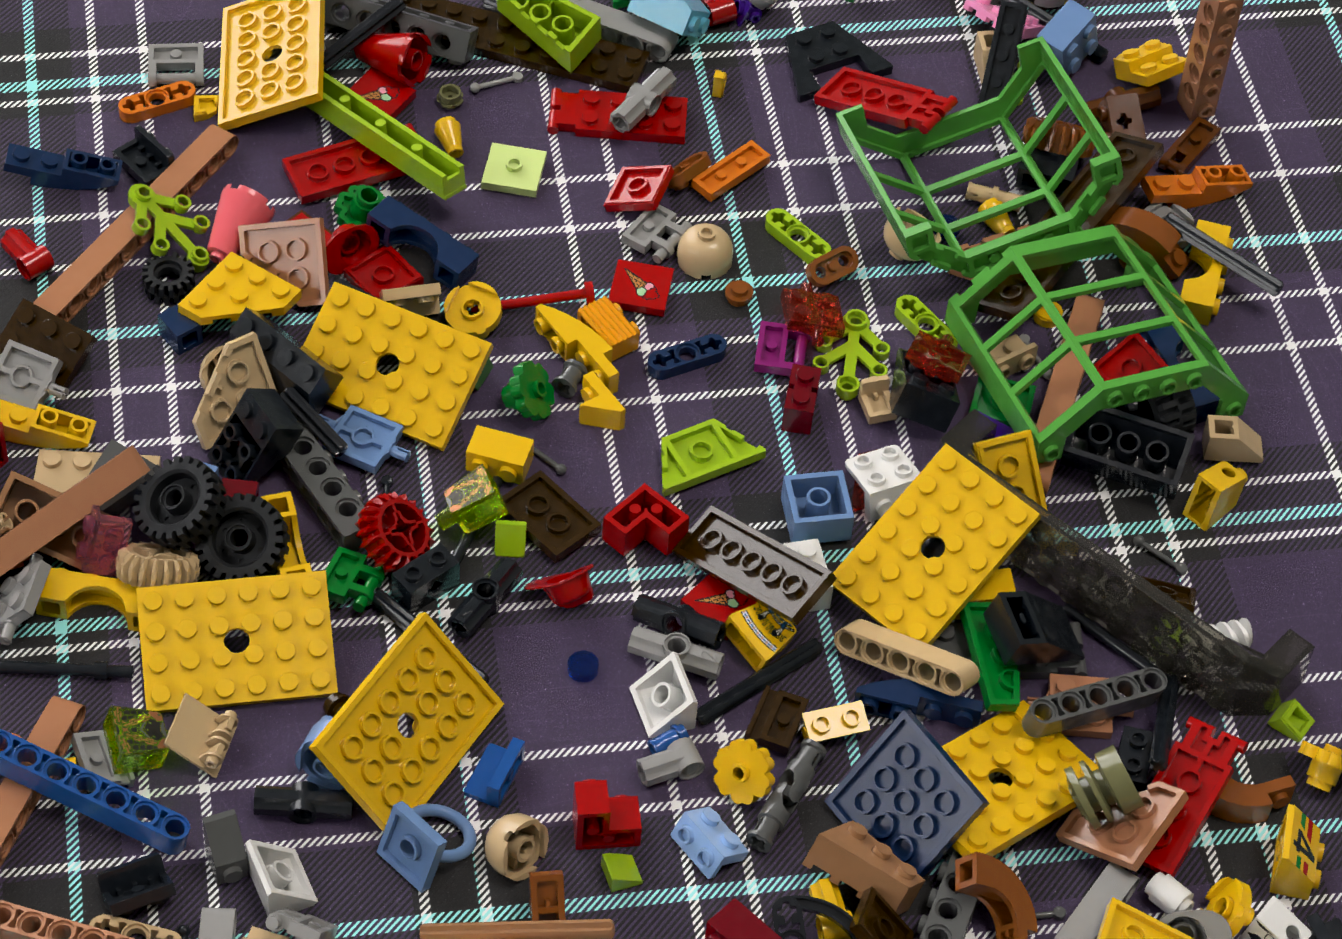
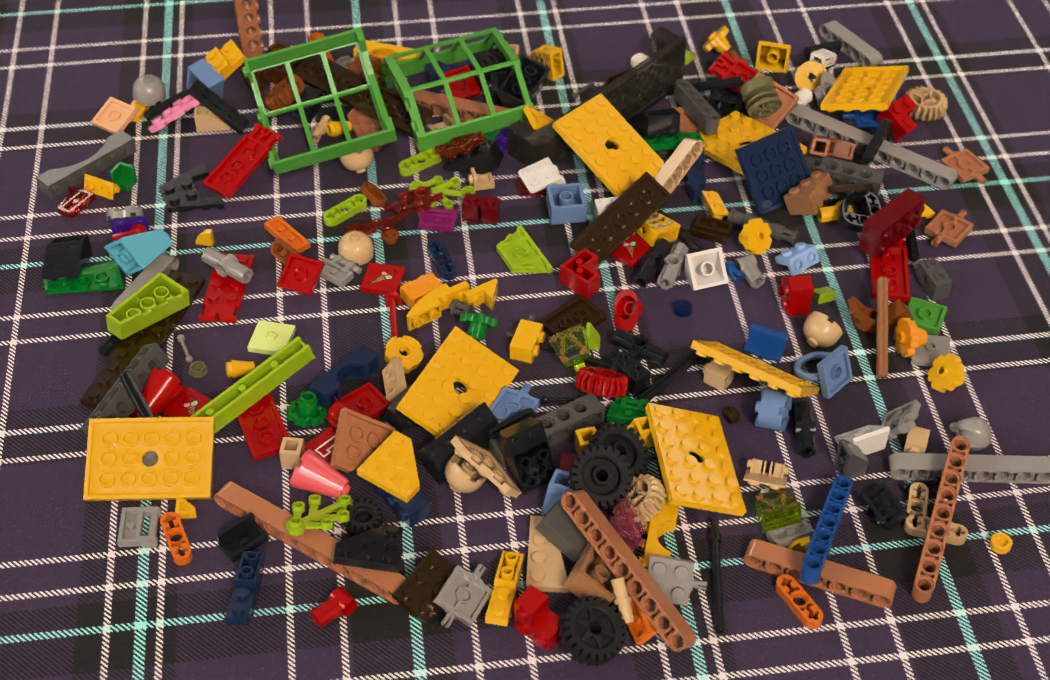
camera: 85 degrees left, 5 degrees down
(104, 281) = (372, 549): none -> black plate
(281, 193) = (291, 452): none -> tan brick
(750, 265) = (370, 226): none -> clear red plate
(1225, 255) = (388, 38): axle -> none

